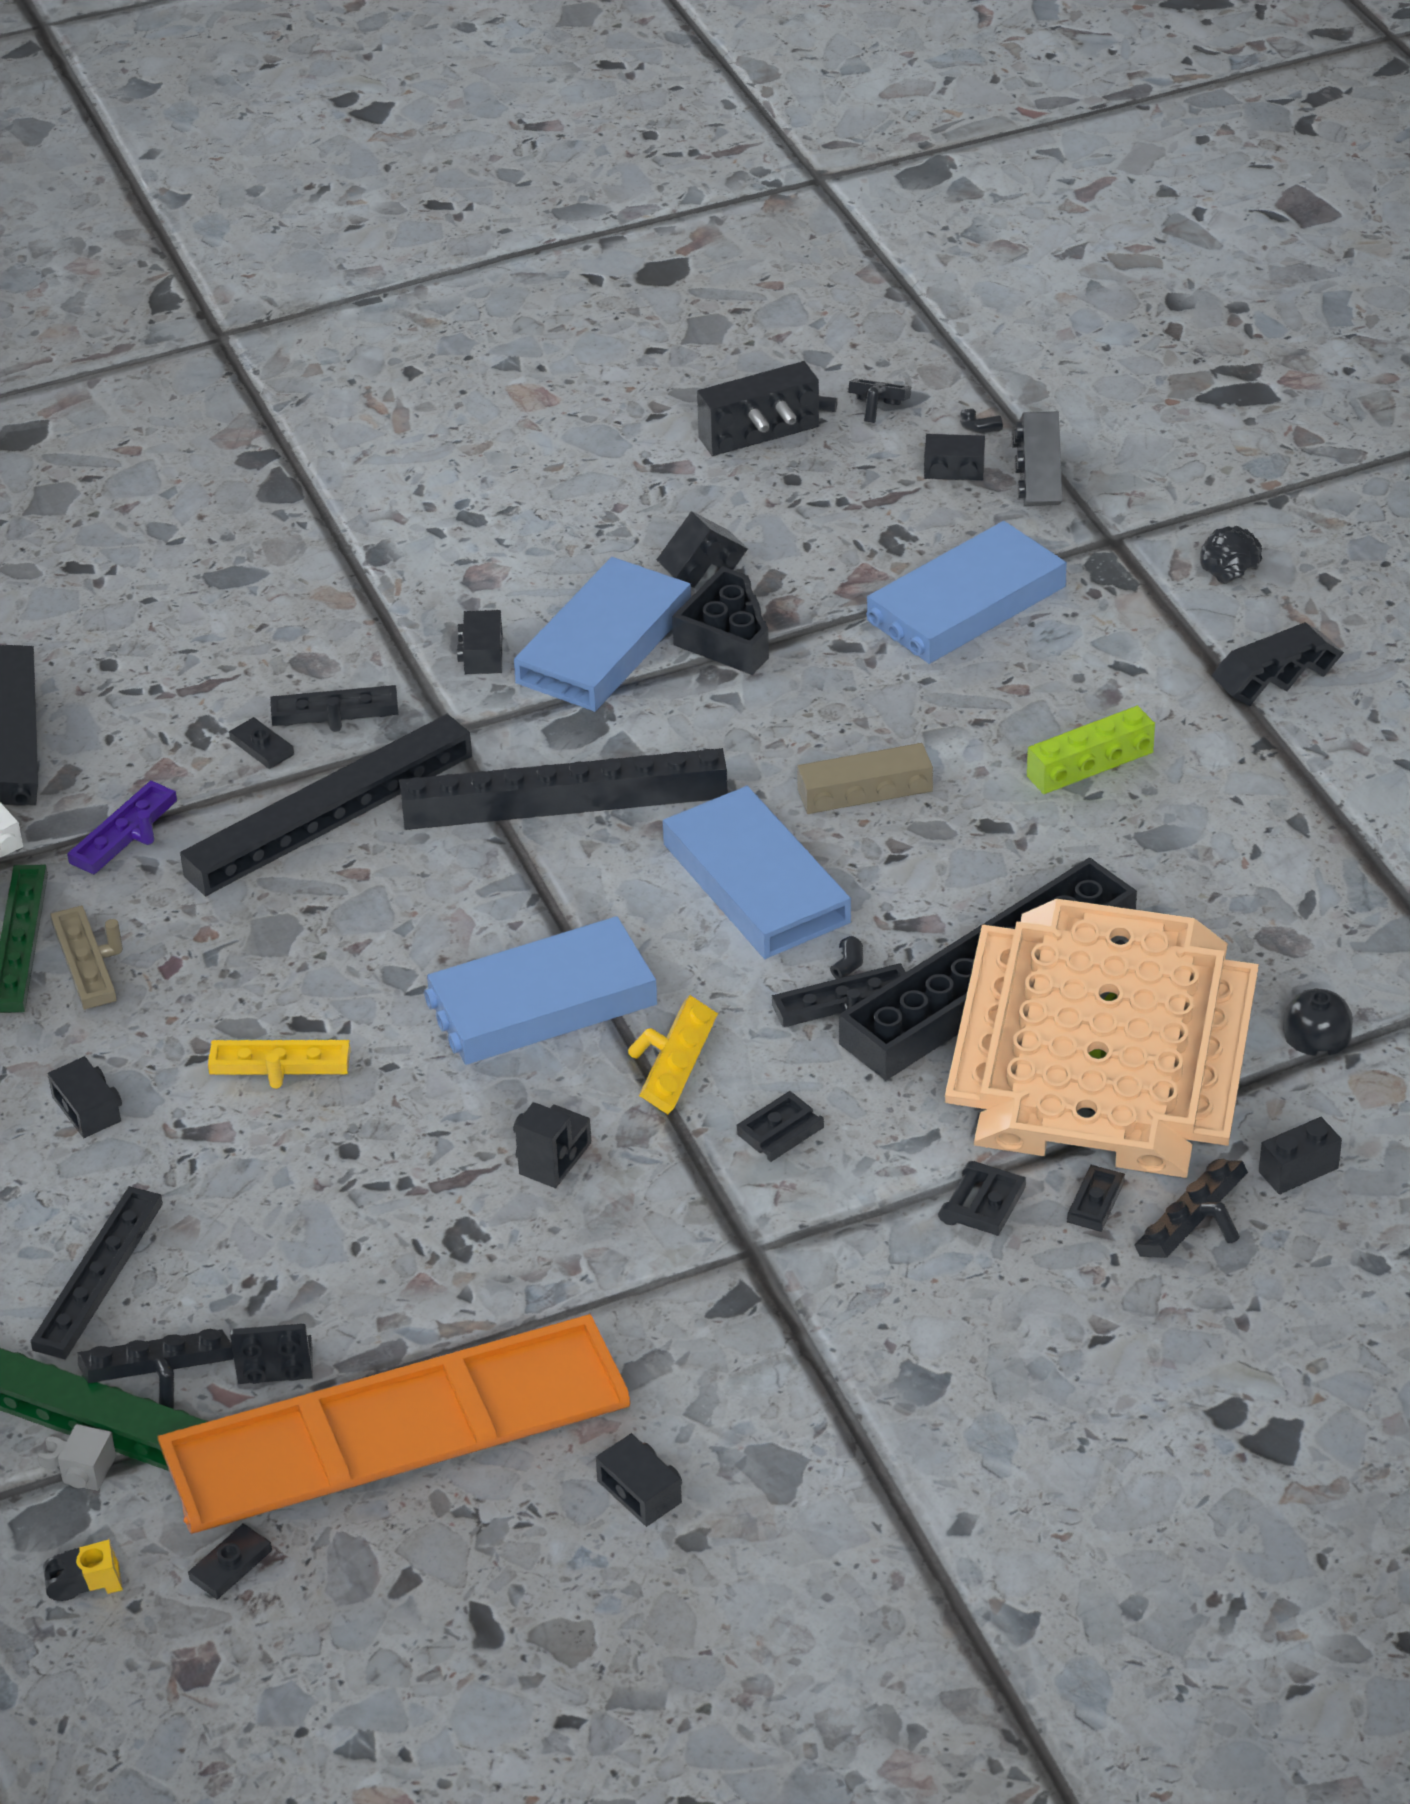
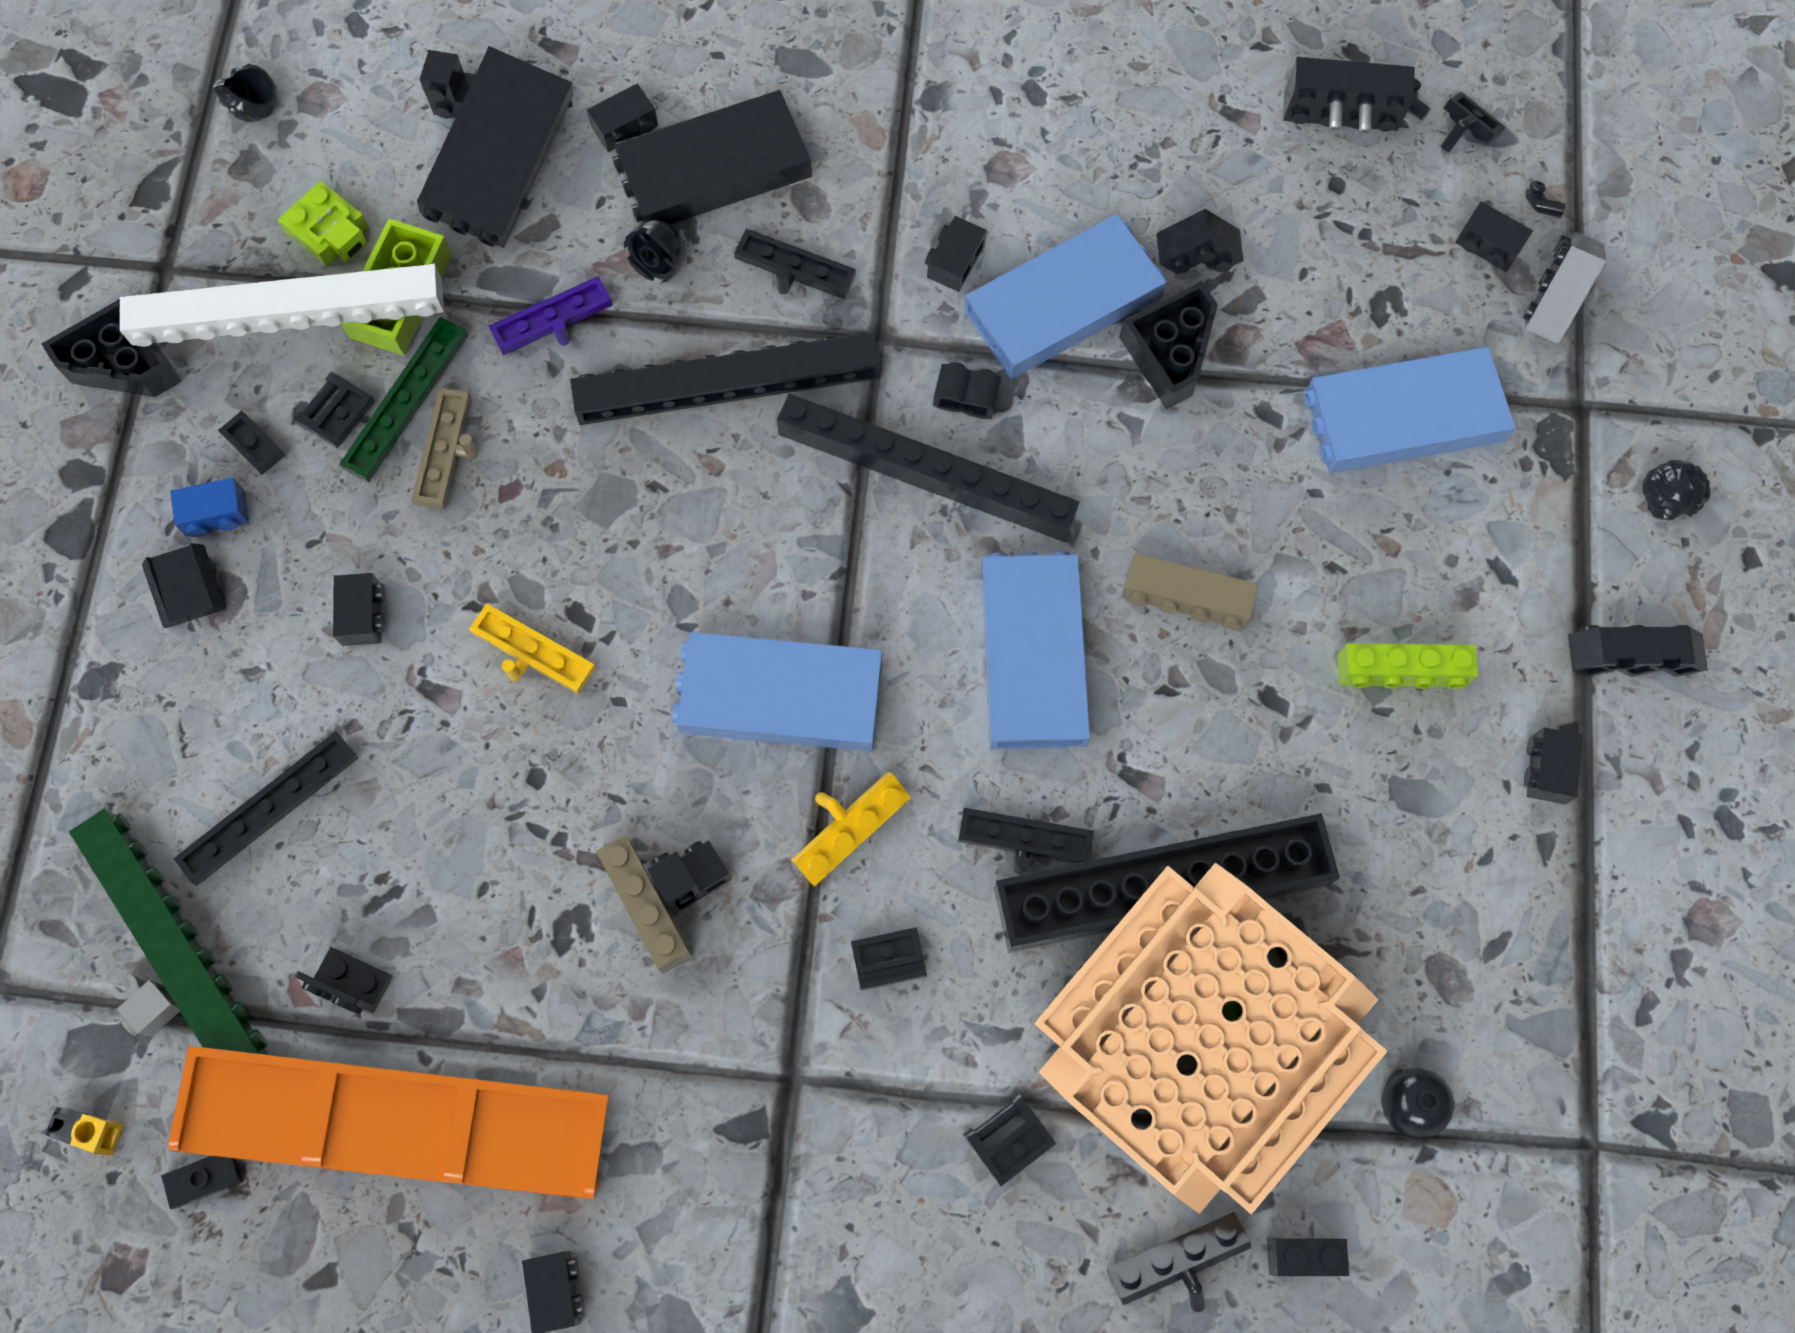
camera: 25 degrees right, 30 degrees up
(91, 668) = (622, 116): none -> black brick
(157, 1356) = (252, 936): black plate -> none
(194, 740) = (655, 250): none -> black cylinder
(201, 665) = (712, 160): none -> black brick
(261, 743) = (715, 274): black plate -> none
(524, 1180) = (644, 904): none -> dark tan brick
(562, 727) = (966, 390): none -> black brick
(851, 959) = (1061, 794): black arm -> none
(1096, 1198) = (1105, 1196): black plate -> none
(1264, 764) = (1553, 765): none -> black brick

